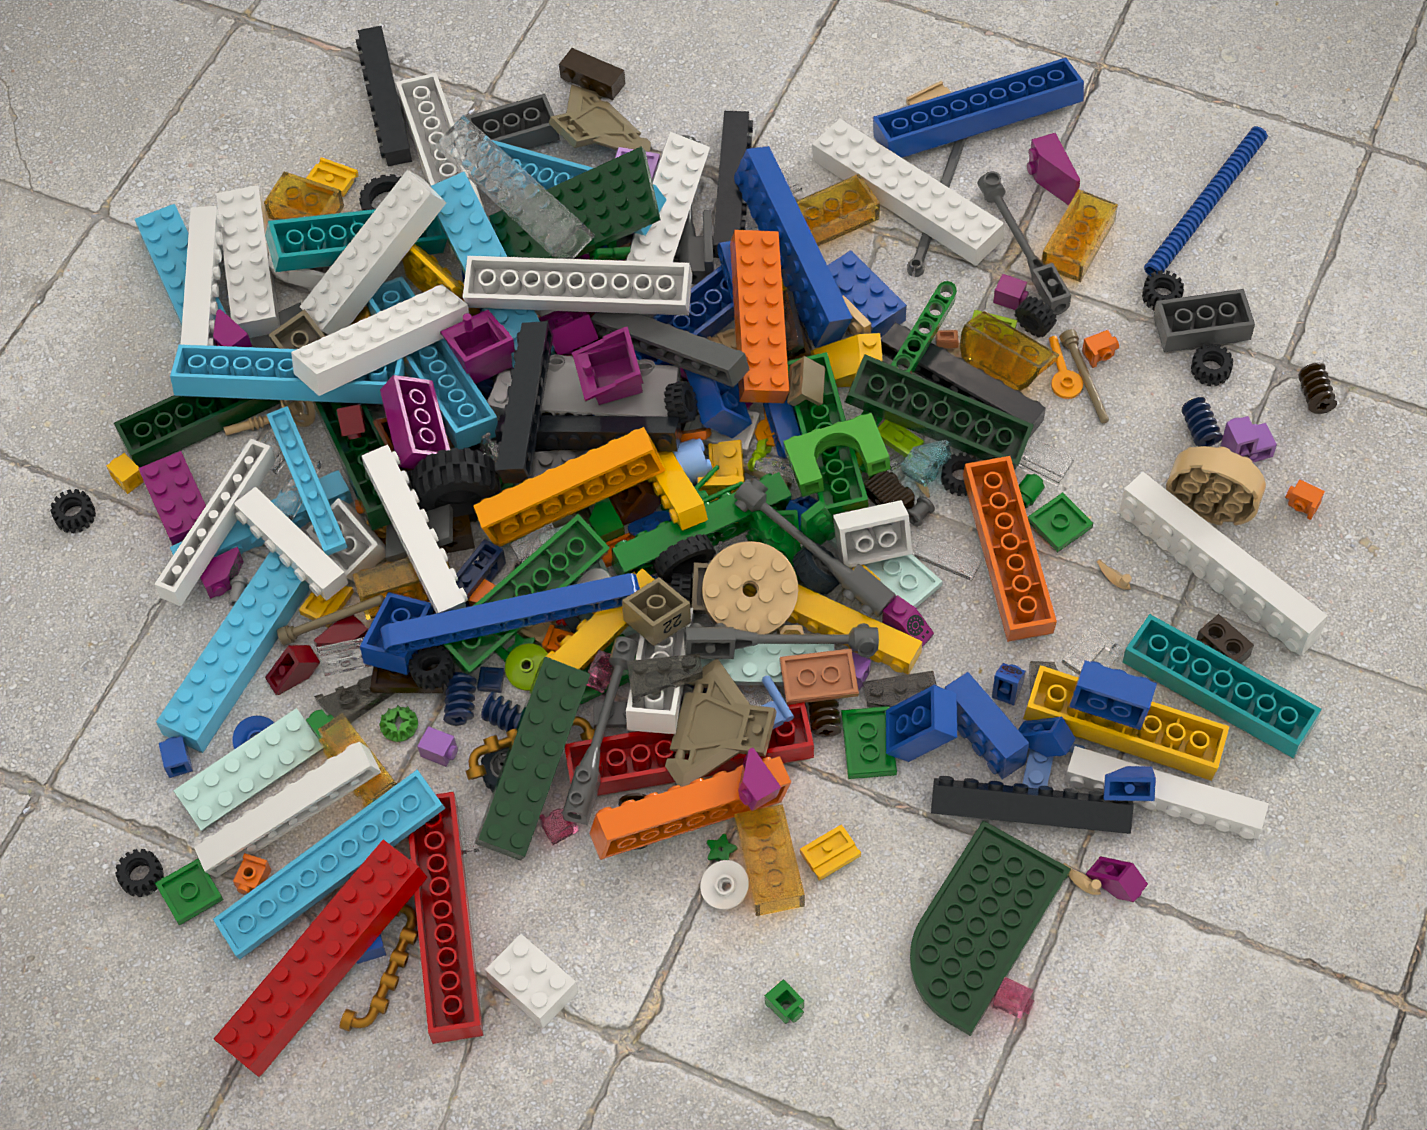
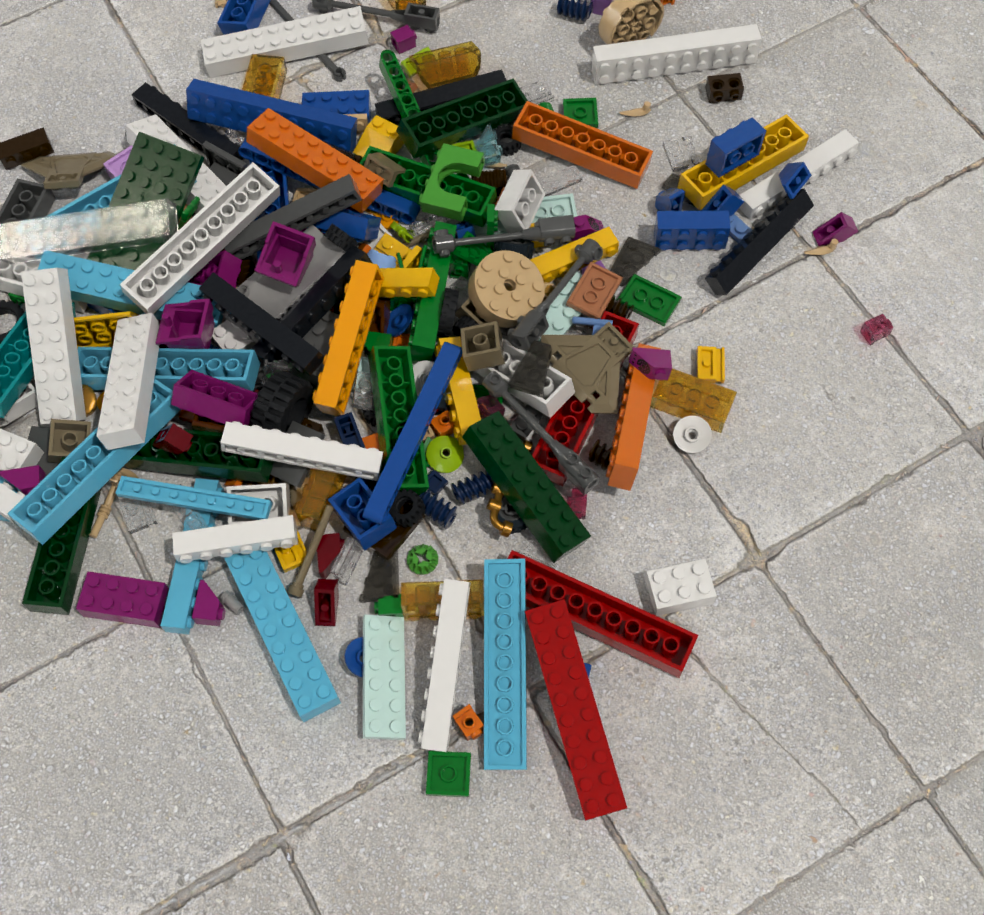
camera: 55 degrees left, 5 degrees up
(68, 501) = (57, 670): black tyre -> none
(125, 473) = (66, 623): yellow brick -> none
(135, 860) = (417, 810): black tyre -> none
(175, 756) = (333, 721): blue brick -> none
(214, 523) = (173, 579): white brick -> none
(388, 980) = (614, 679): pearl gold bar -> none
(437, 746) = (462, 543): medium lavender brick -> none
(714, 846) = (663, 427): green plate -> none
(781, 995) = (801, 445): green brick -> none
(921, 723) = (669, 258): blue brick -> none
(981, 924) = (816, 316): dark green plate -> none
(1035, 316) = (435, 29): black tyre -> none
(1065, 383) = (489, 53): light orange piece -> none
(1070, 340) = (462, 33): dark tan piece -> none
(1099, 347) = (481, 22): orange brick -> none
(1221, 685) = (759, 100): teal brick -> none

